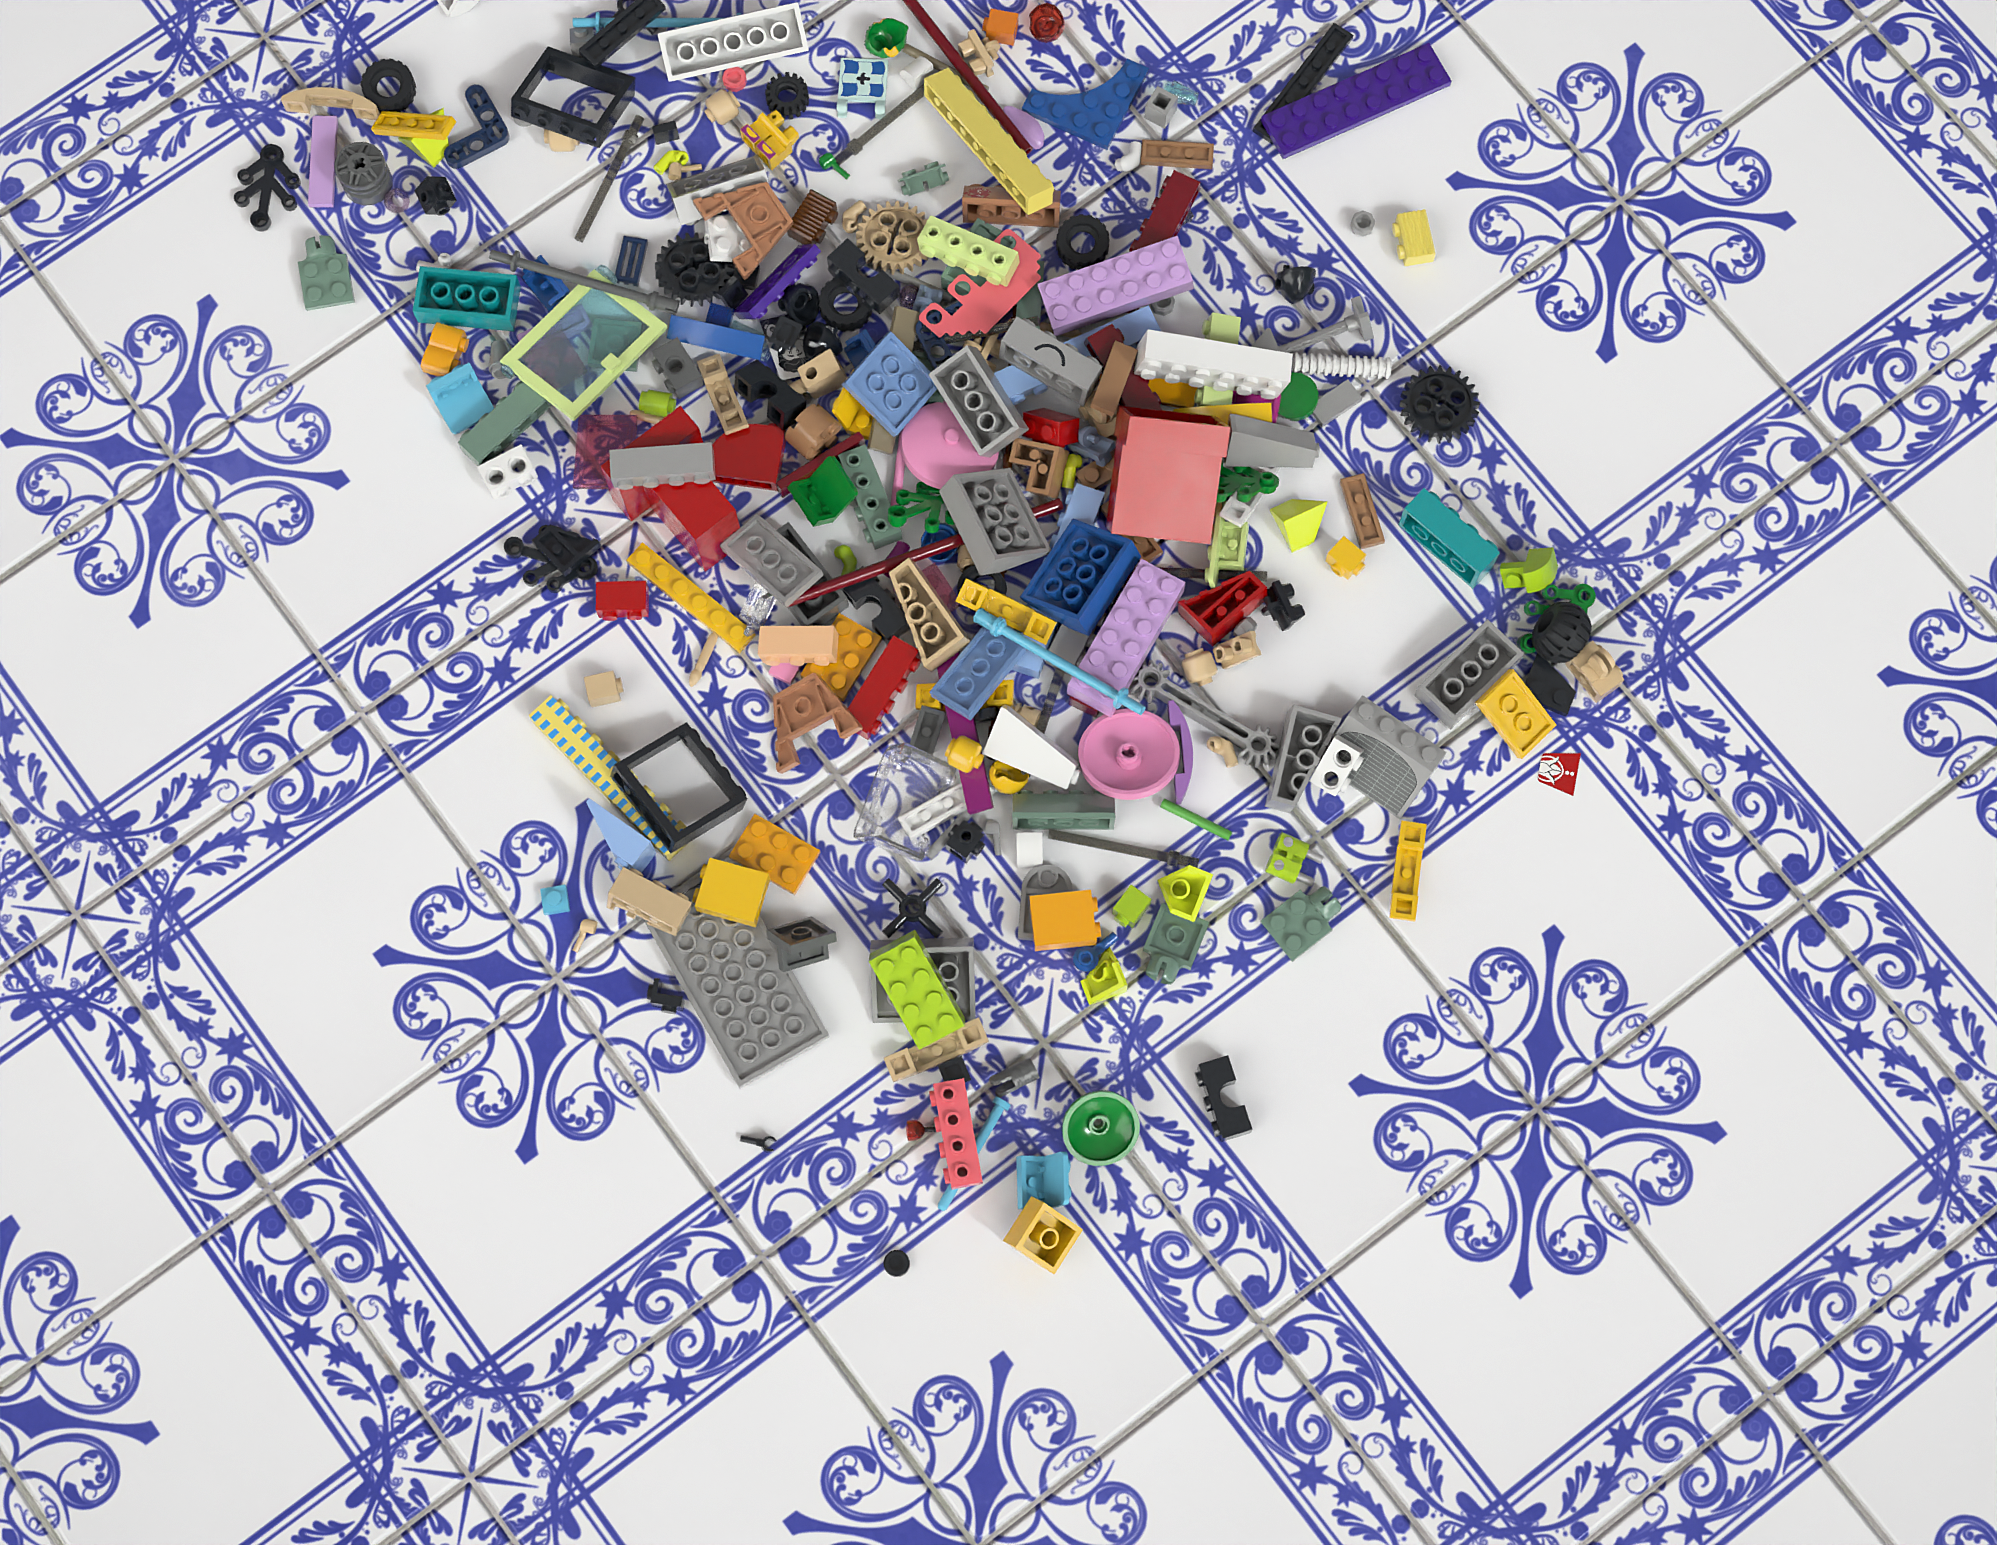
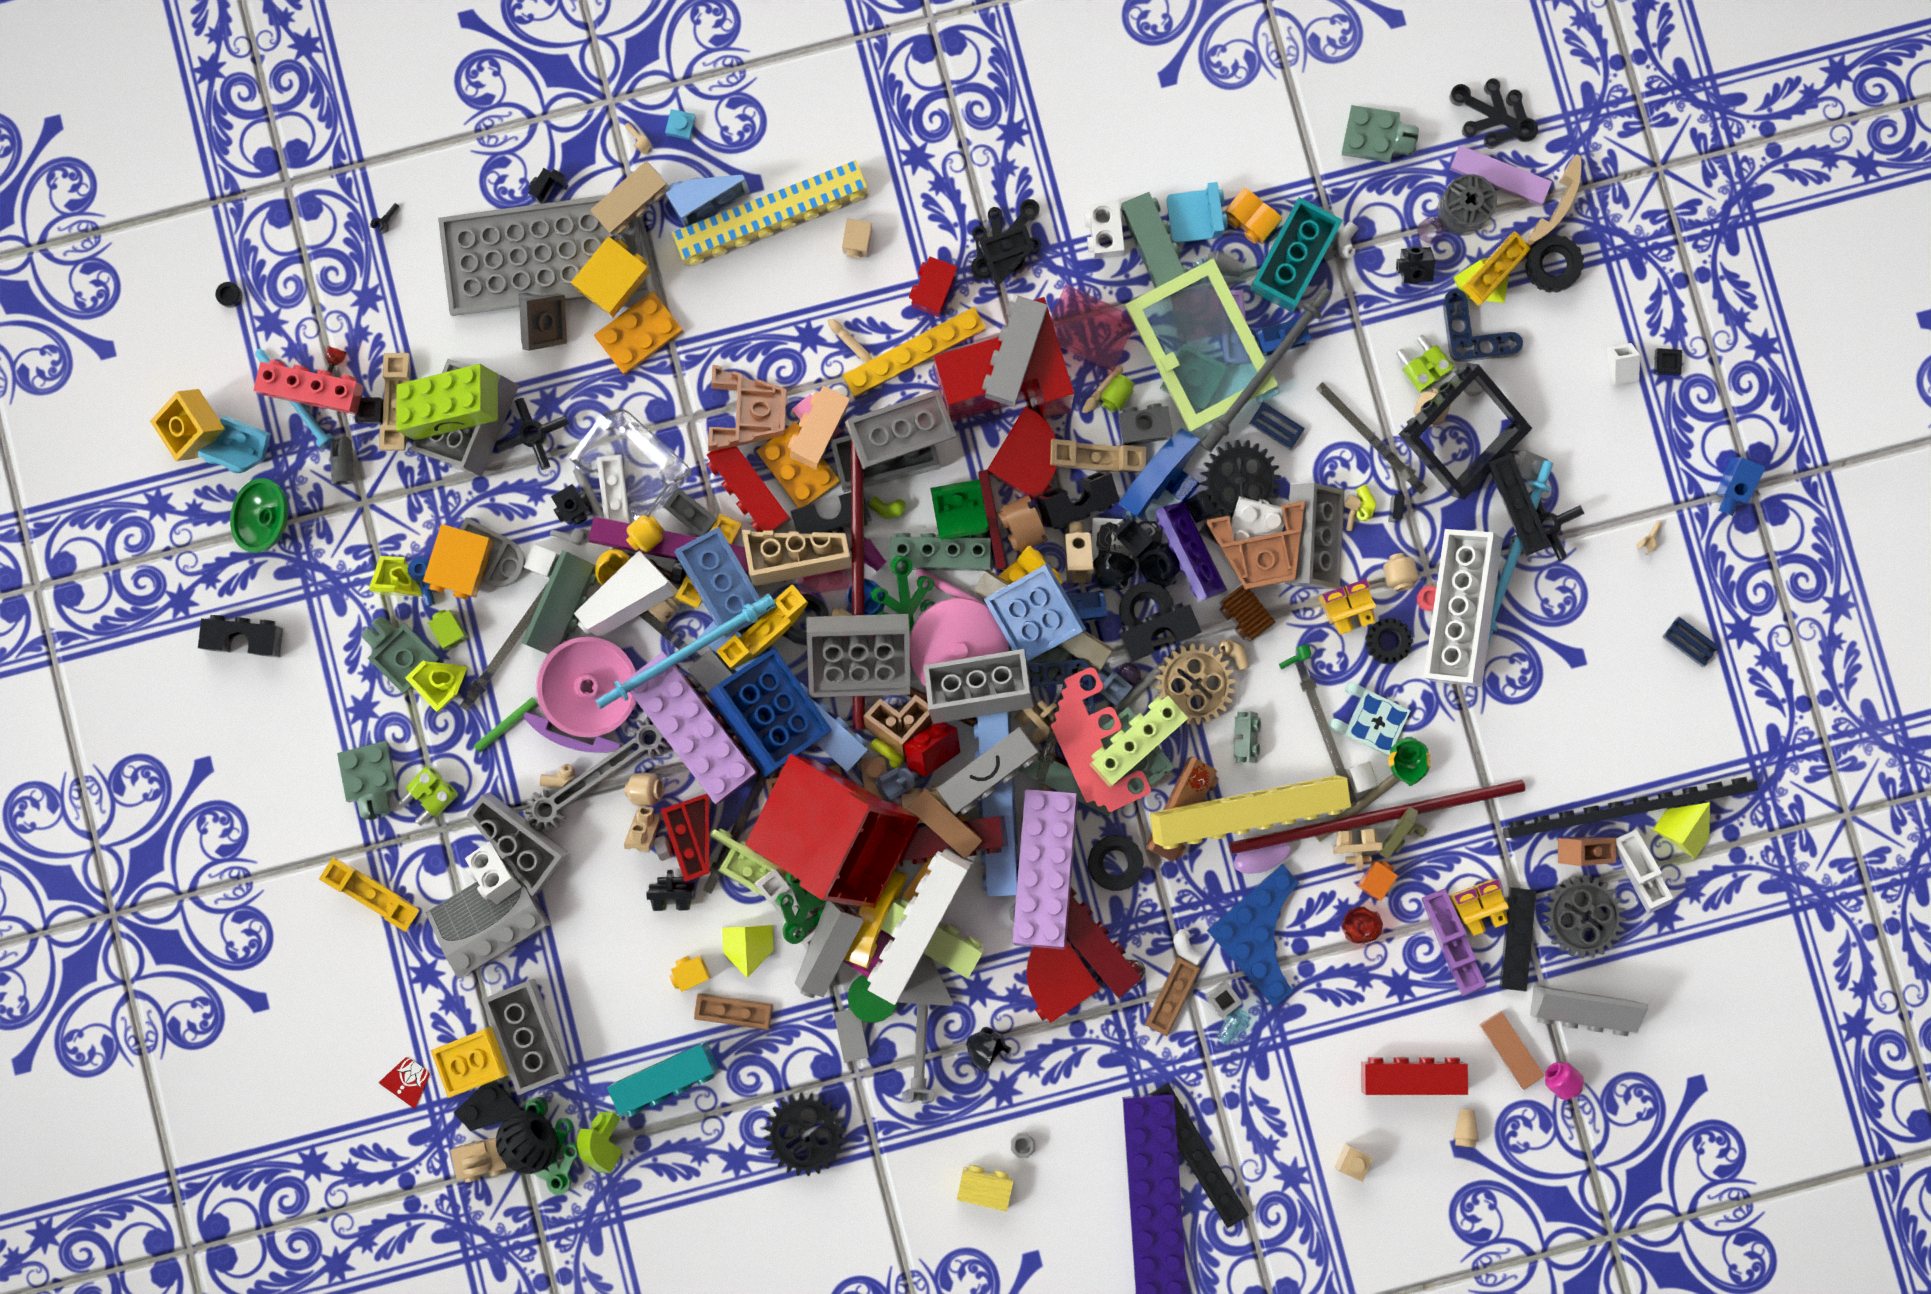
camera: 115 degrees right, 10 degrees up
(527, 154) = (1428, 368): none -> lime piece
(650, 810) = (713, 229): black window -> none
(756, 608) = (870, 401): clear panel -> none
(951, 20) = (1404, 826): none -> olive plate
(1210, 247) = (1057, 981): none -> red brick
(1342, 365) = (884, 1057): white piece -> none

